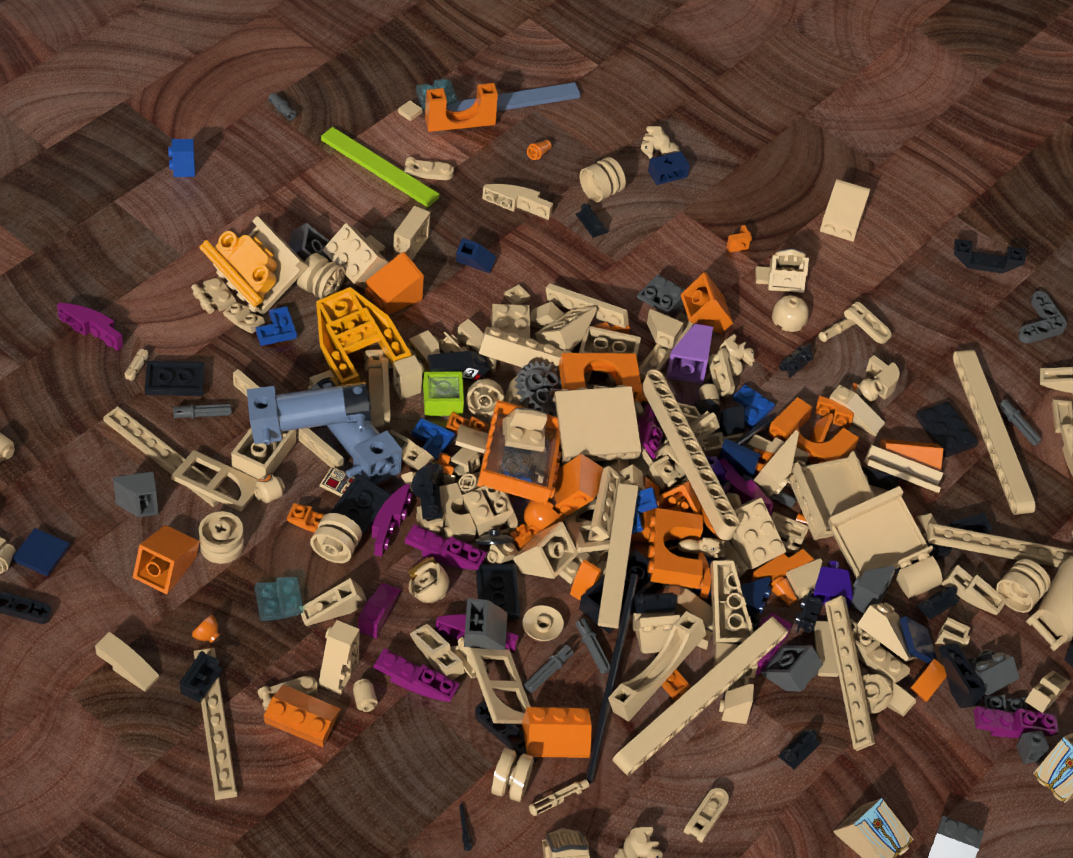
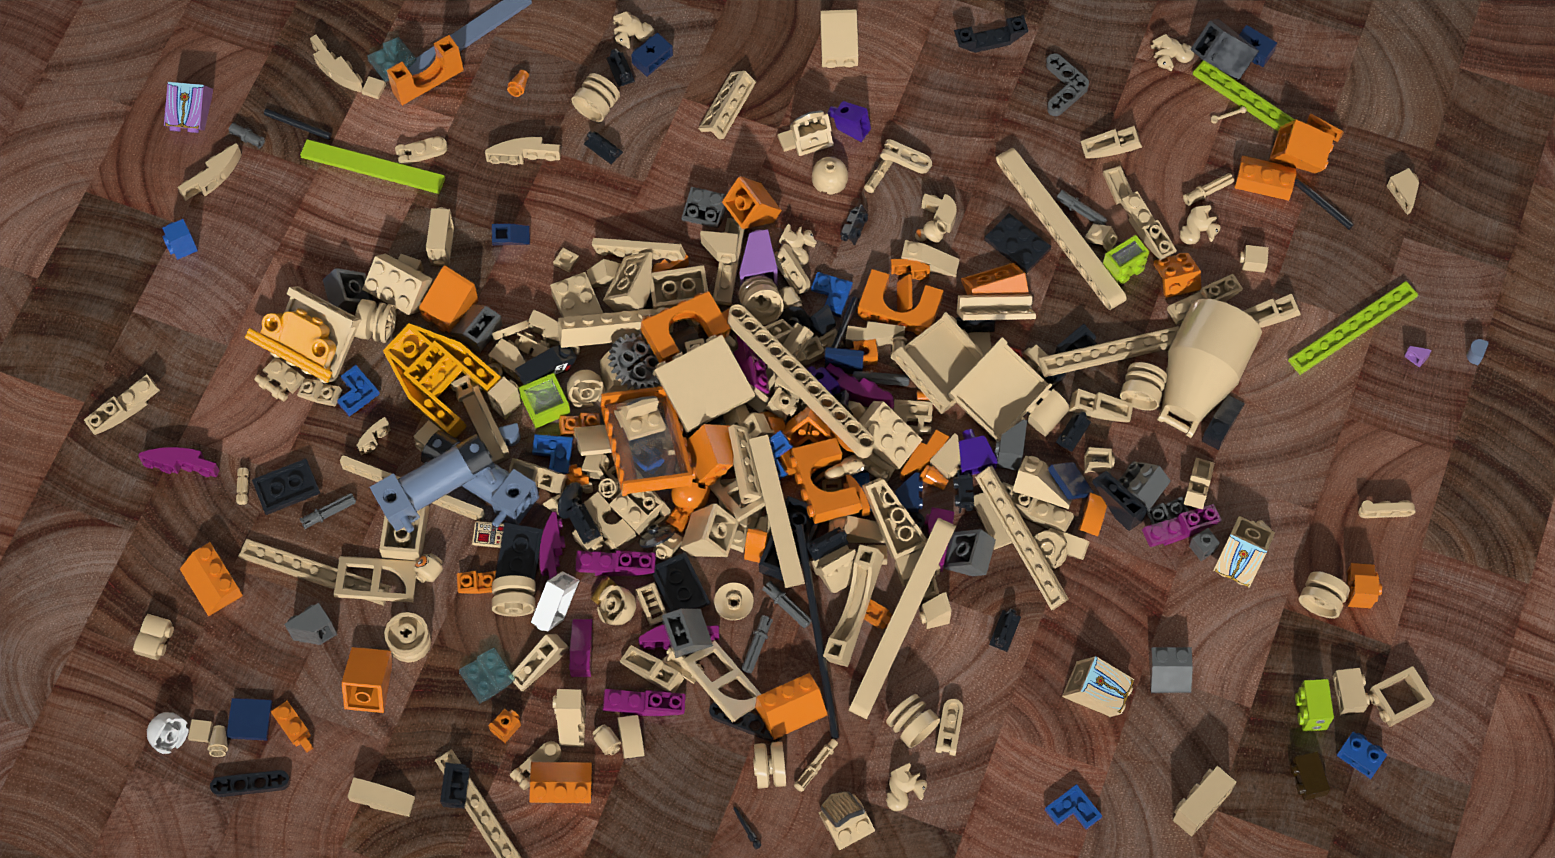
camera: 15 degrees left, 15 degrees up
(61, 267) = (123, 407): none -> tan slope
(67, 425) = (210, 579): none -> orange slope
(77, 572) = (292, 725): none -> orange hinge
(207, 630) = (437, 735): orange brick -> none
(242, 66) = (187, 106): none -> slope
(242, 123) = (217, 171): none -> tan slope
(266, 369) = (368, 440): none -> tan slope
(274, 646) = (503, 731): none -> orange brick
(330, 114) = (296, 123): none -> black bar
(372, 554) = (555, 601): none -> white window
(384, 83) = (335, 67): none -> tan slope
(389, 701) = (630, 736): none -> tan slope
(399, 410) = (510, 434): none -> sand blue brick
(412, 316) = (477, 326): none -> dark grey slope
(439, 326) = (510, 330): none -> tan tile
(462, 582) = (650, 587): none -> tan slope
(635, 168) = (620, 68): none -> black hinge
(672, 790) = (909, 716): none -> tan wheel
(691, 388) = (761, 299): none -> tan wheel
(720, 228) = (729, 104): none -> tan fence
(739, 241) = (752, 113): orange bracket -> none
(775, 473) = (884, 358): tan slope -> none
(829, 276) = (851, 120): none -> dark purple torso
(1031, 449) = (1102, 235): none -> tan bracket
(1047, 474) = (1126, 259): none -> lime piece

